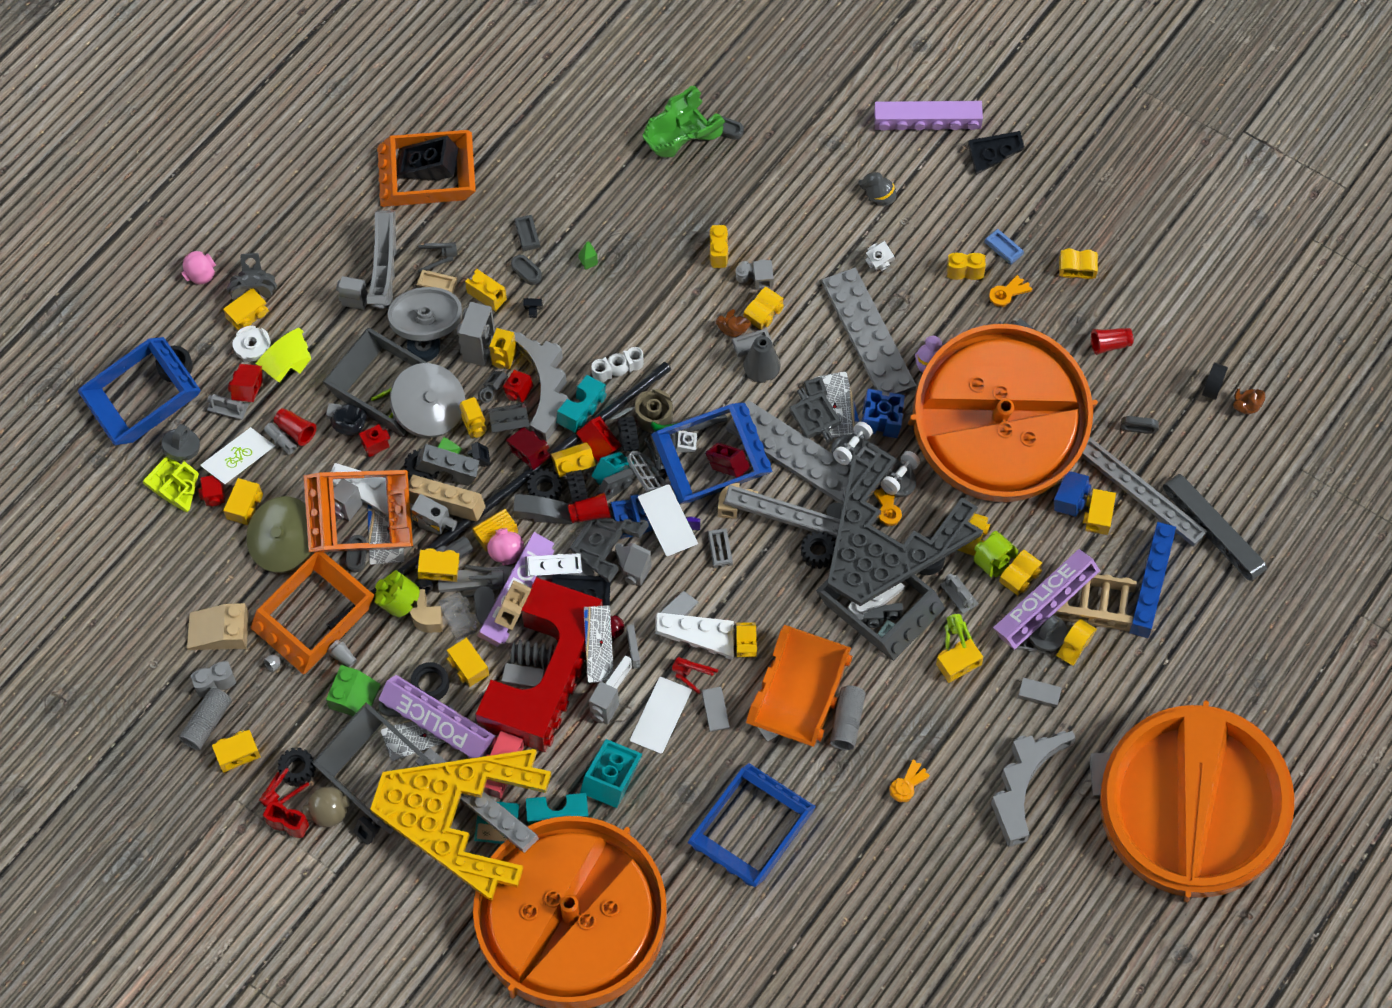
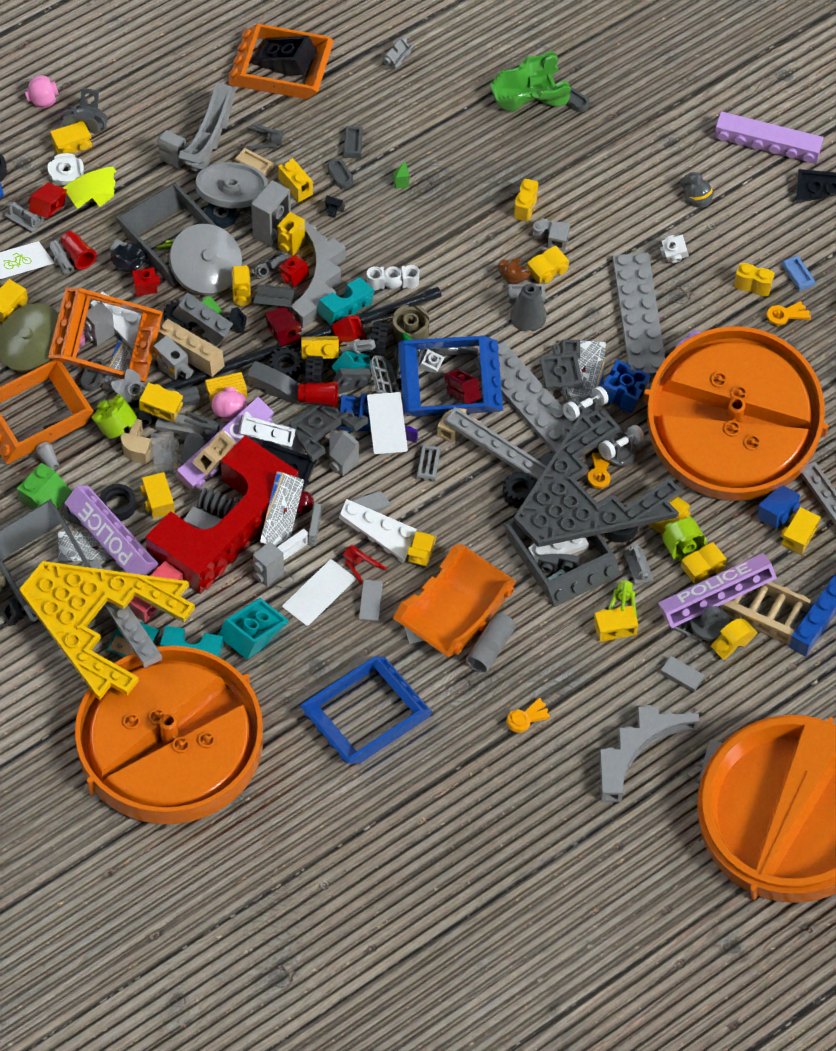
camera: 15 degrees right, 5 degrees down
(396, 558) = (128, 385): none -> light grey plate
(537, 134) = (392, 58): none -> light grey hinge
(611, 448) = (358, 345): none -> light grey axle

